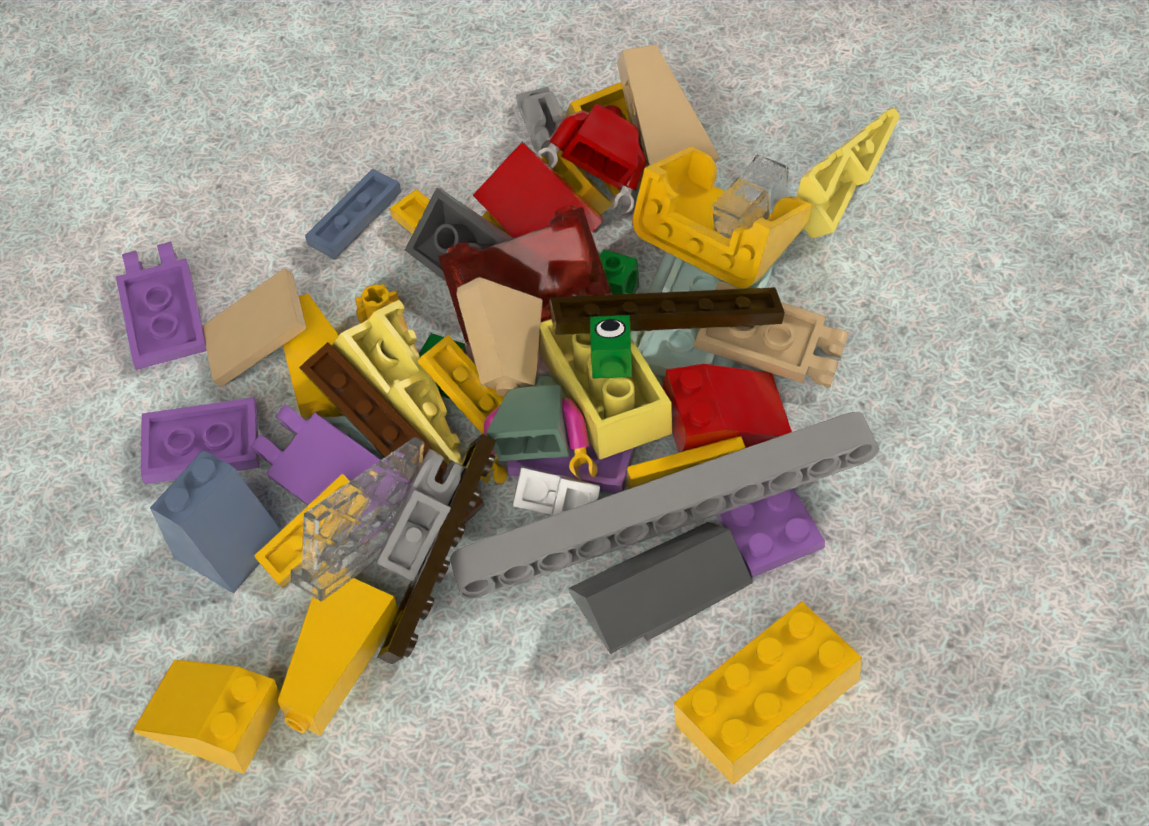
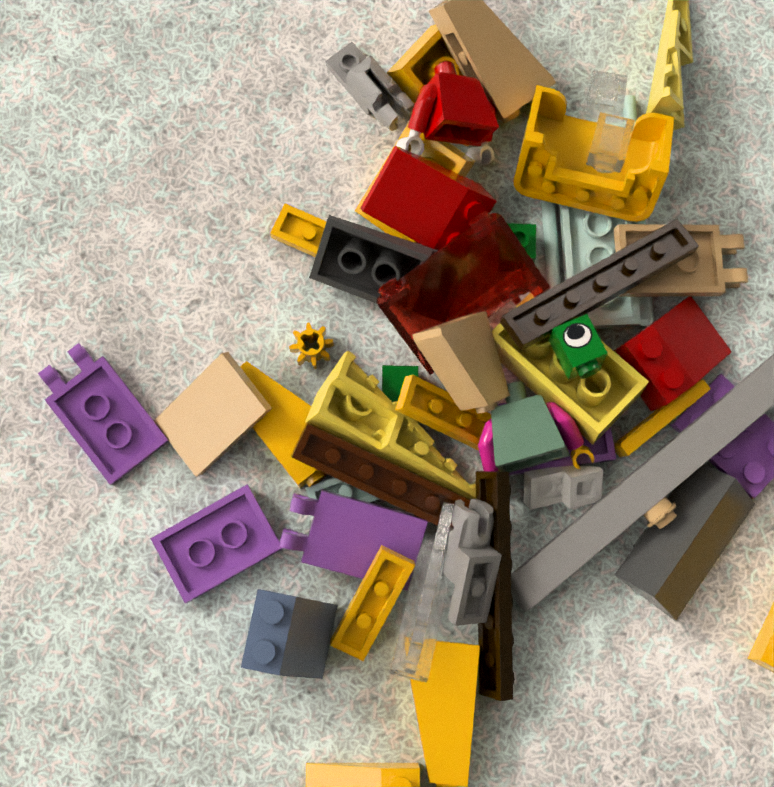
camera: 30 degrees left, 25 degrees up
(353, 213) = (235, 248): sand blue plate -> none
(638, 539) = (661, 513): none -> tan plate

